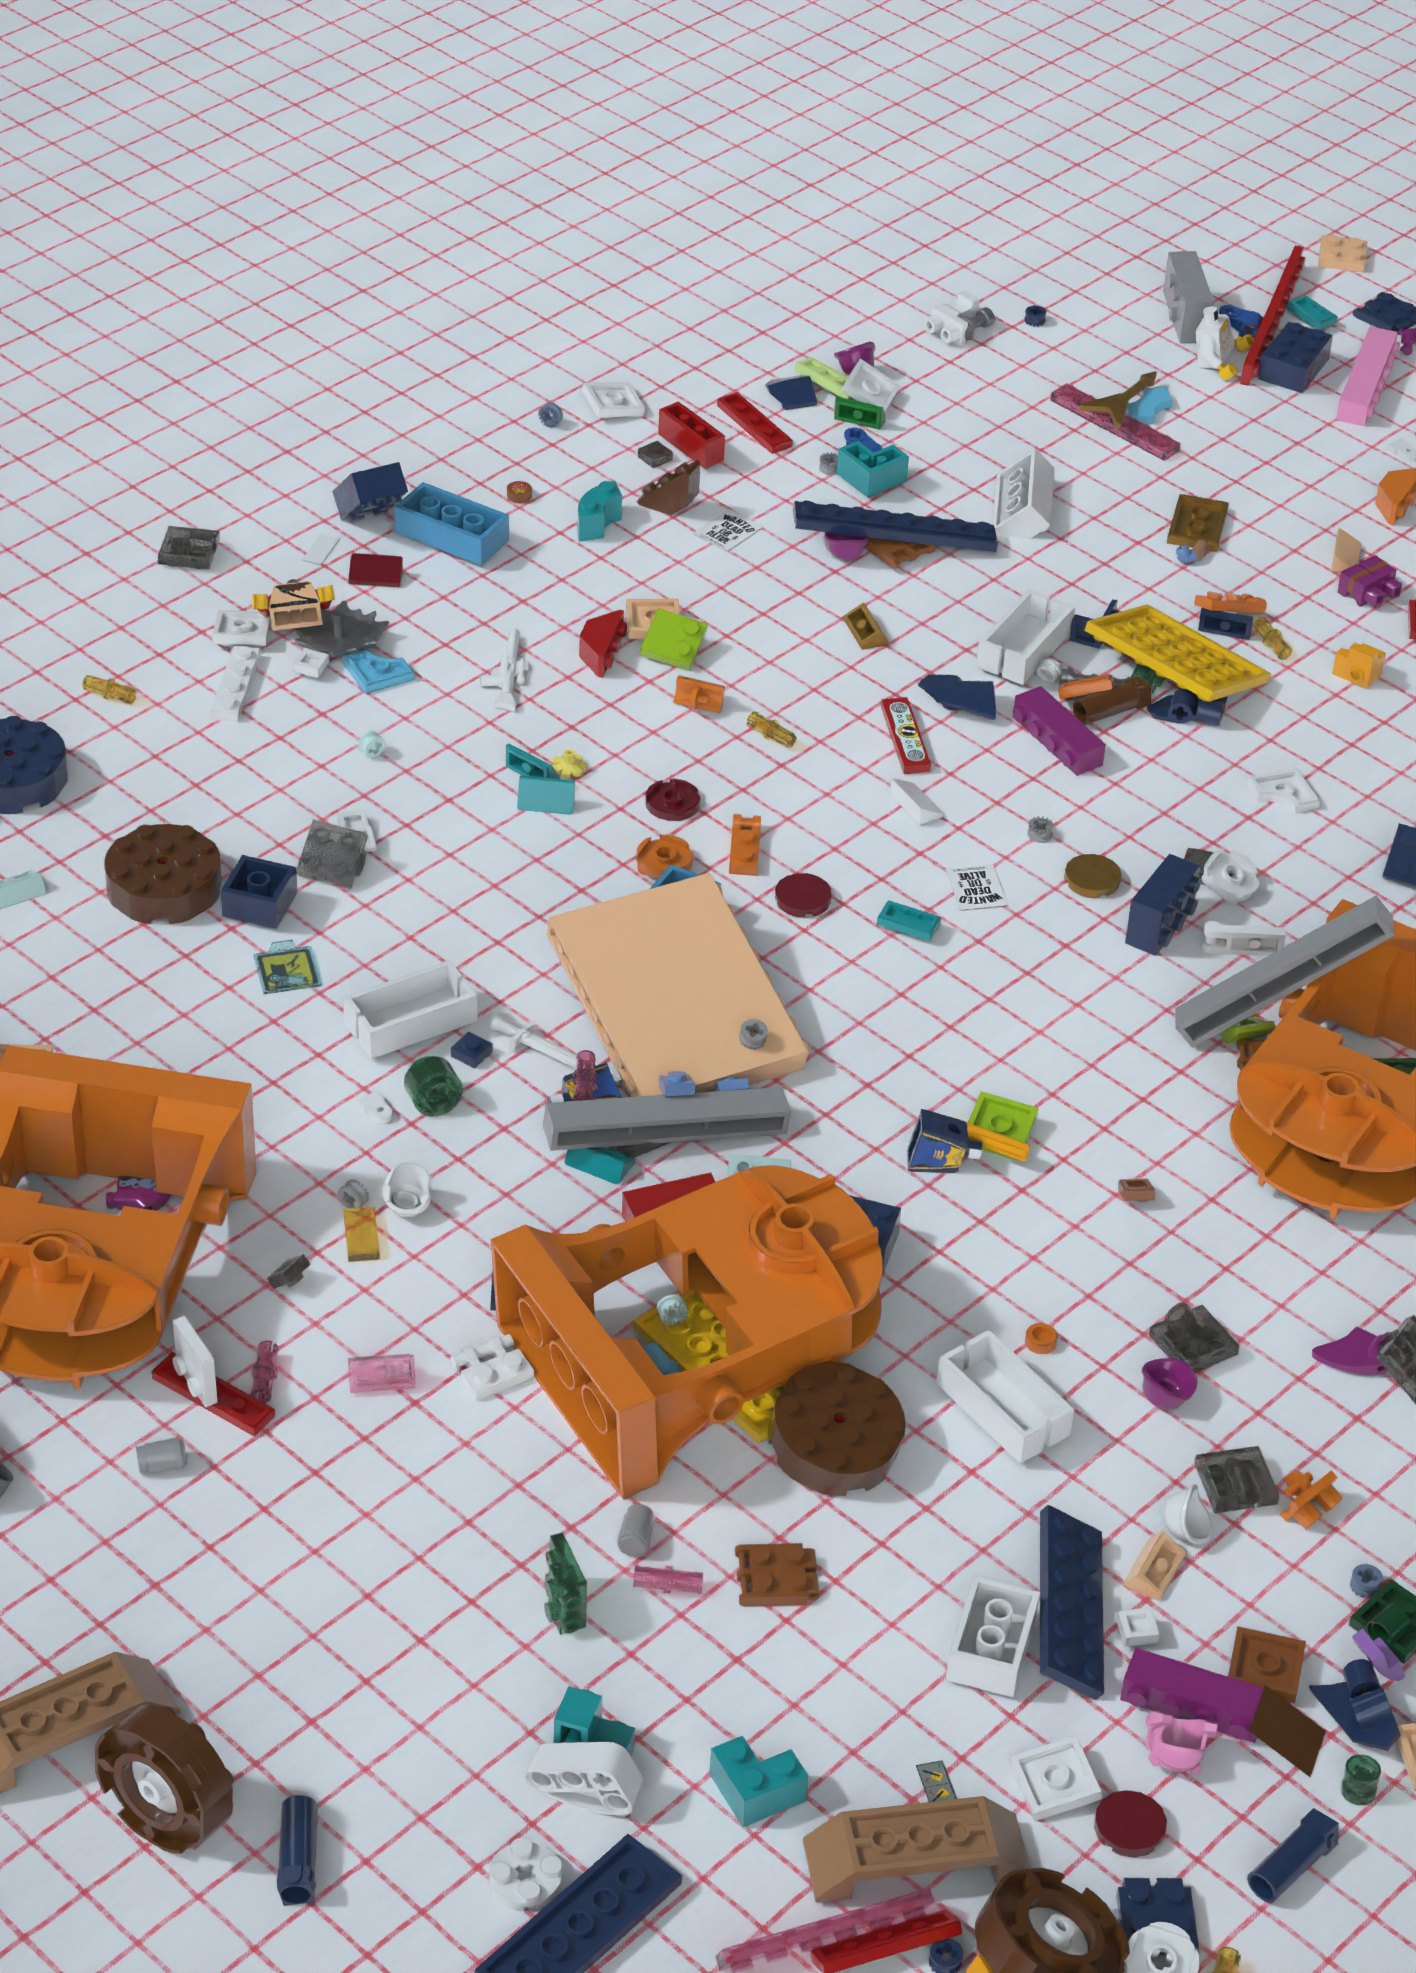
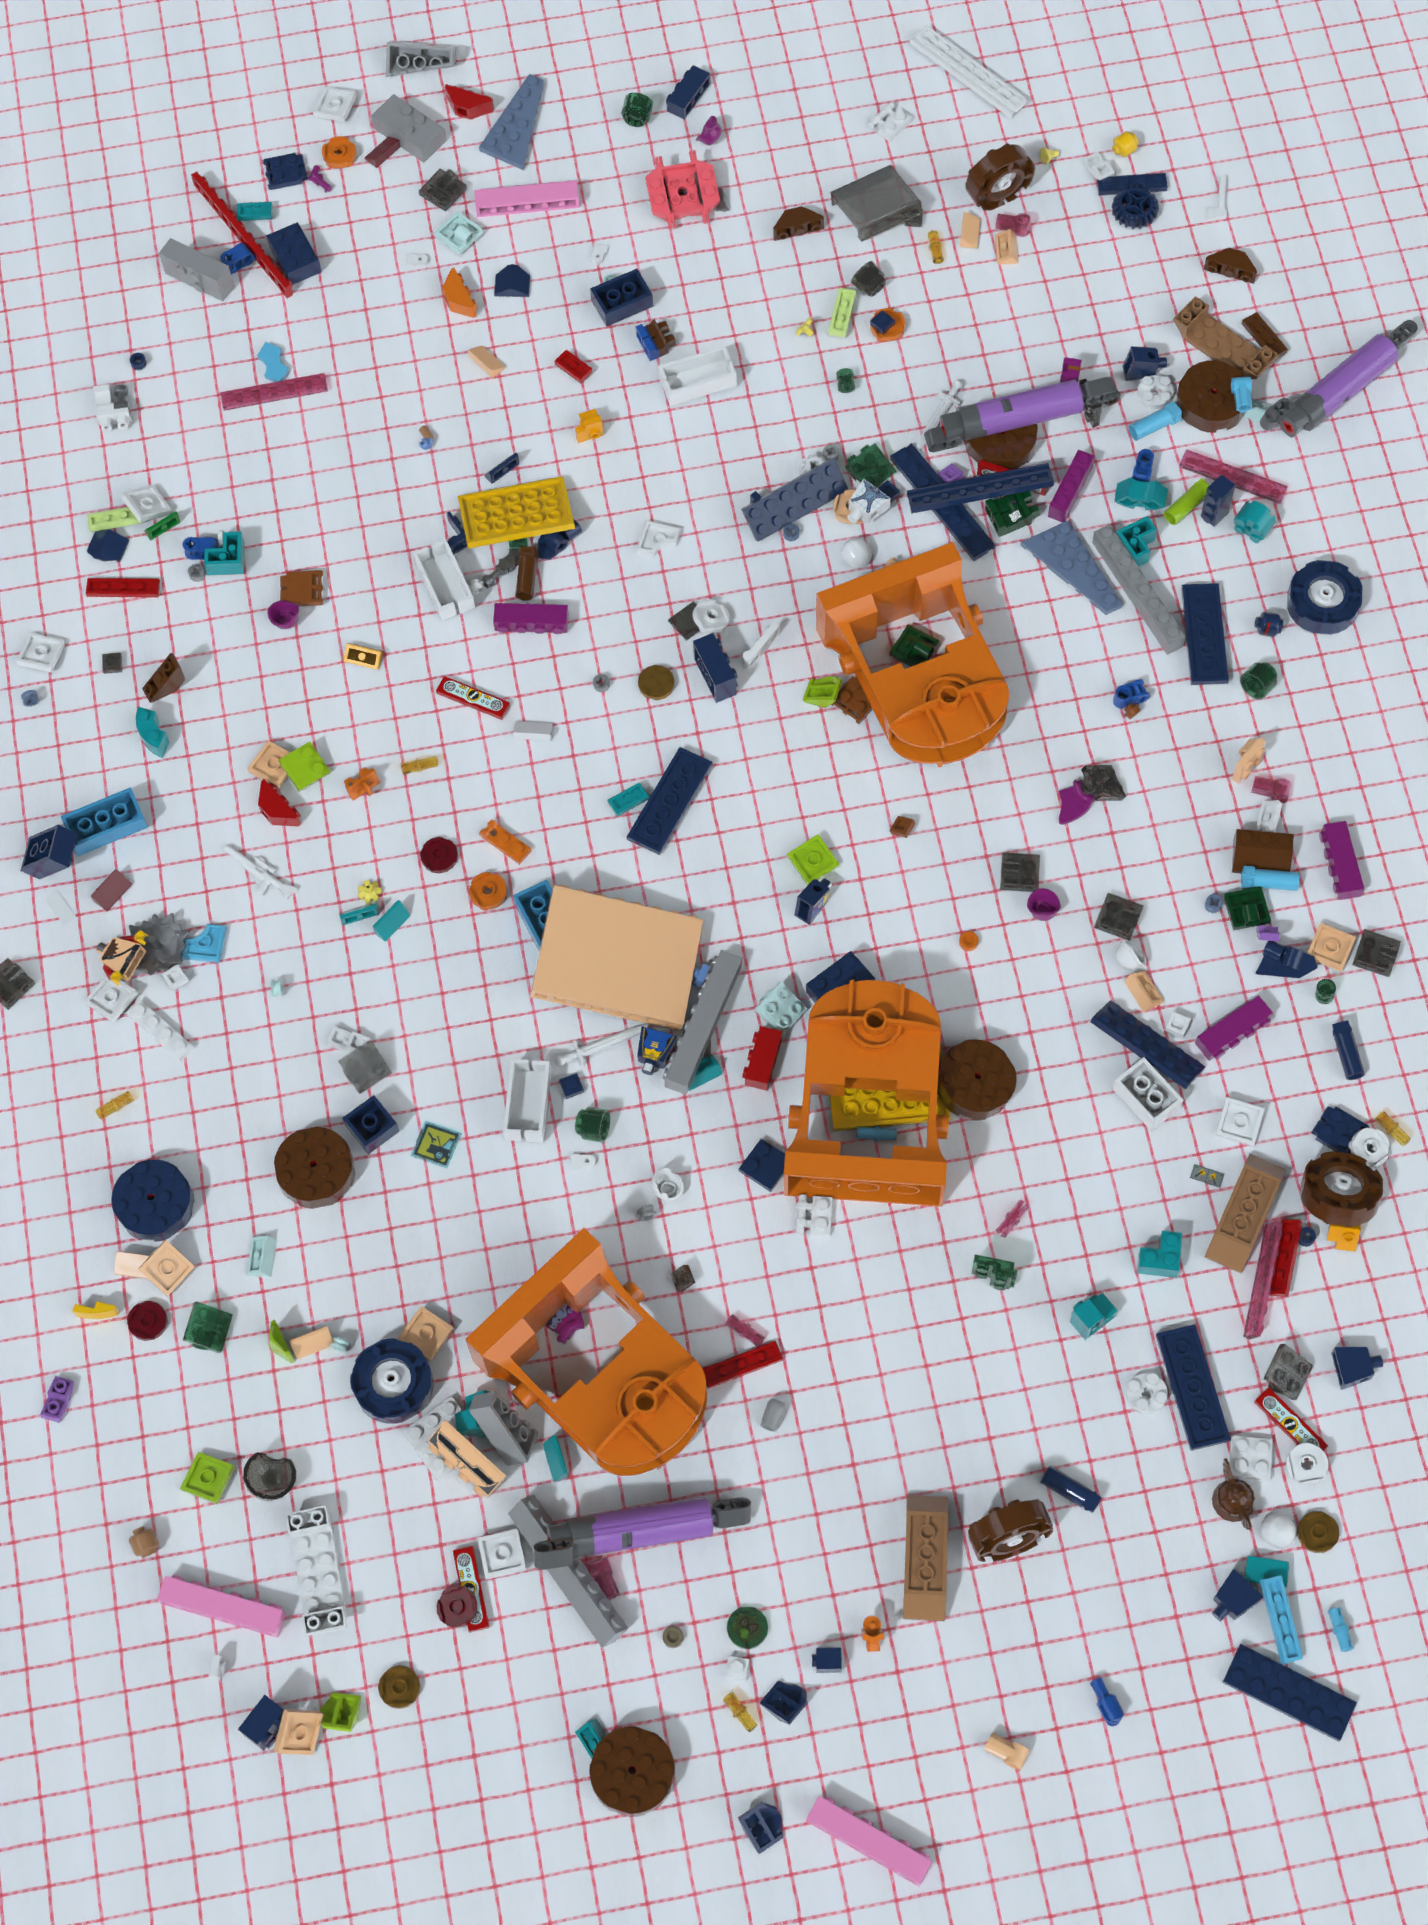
camera: 50 degrees left, 25 degrees up
(194, 1362) = (732, 1364): white plate -> none
(361, 1234) = (674, 1225): clear yellow tile -> none
(381, 1373) = (787, 1273): clear pink plate -> none
(519, 491) = (91, 762): dark orange tile -> none
(584, 1076) = (642, 1039): clear pink pin -> none
(587, 1776) = (1113, 1332): white beam -> none
(636, 1530) = (972, 1214): light grey piece -> none
(673, 1314) = (845, 1106): light aqua bush -> none
(677, 1084) = (690, 1003): medium blue plate -> none
(691, 434) = (118, 633): red brick -> none
(728, 530) = (214, 669): white sticker -> none
(759, 1039) = (678, 945): light grey bush -> none
(777, 1574) = (1039, 1165): dark orange plate -> none
(803, 894) = (567, 838): dark red tile -> none
(850, 357) = (112, 493): magenta helmet -> none
(894, 526) = (294, 582): dark blue plate -> none
(945, 957) = (669, 800): none -> dark blue plate
(957, 694) = (466, 646): dark blue panel -> none
(976, 887) = (621, 746): white sticker -> none
(999, 1142) = (822, 873): light orange axle -> none
(1004, 1396) = (1004, 986): white piece -> none
(1024, 497) = (312, 492): white slope -> none
(1086, 686) = (507, 578): orange tile -> none
(1117, 404) = (267, 382): pearl gold piece -> none
(1130, 1823) = (1283, 1106): dark red tile -> none
(1177, 1742) = (1258, 1054): bright pink helmet -> none
(1197, 520) = (399, 415): pearl gold tile -> none
(1216, 340) = (250, 288): white torso -> none
(1232, 602) = (493, 454): orange plate -> none
(1268, 1661) = (1235, 984): dark orange plate -> none
(1272, 638) = (532, 453): clear yellow axle -> none
(1284, 971) = (836, 656): light grey brick -> none
(1287, 1731) = (1280, 1003): reddish brown sticker -> none
(1302, 1507) = (1150, 894): orange hips -> none
(1342, 253) = (207, 150): light nougat plate -> none
(1368, 376) = (339, 228): bright pink brick -> none
(1369, 582) = (522, 368): magenta hips -> none

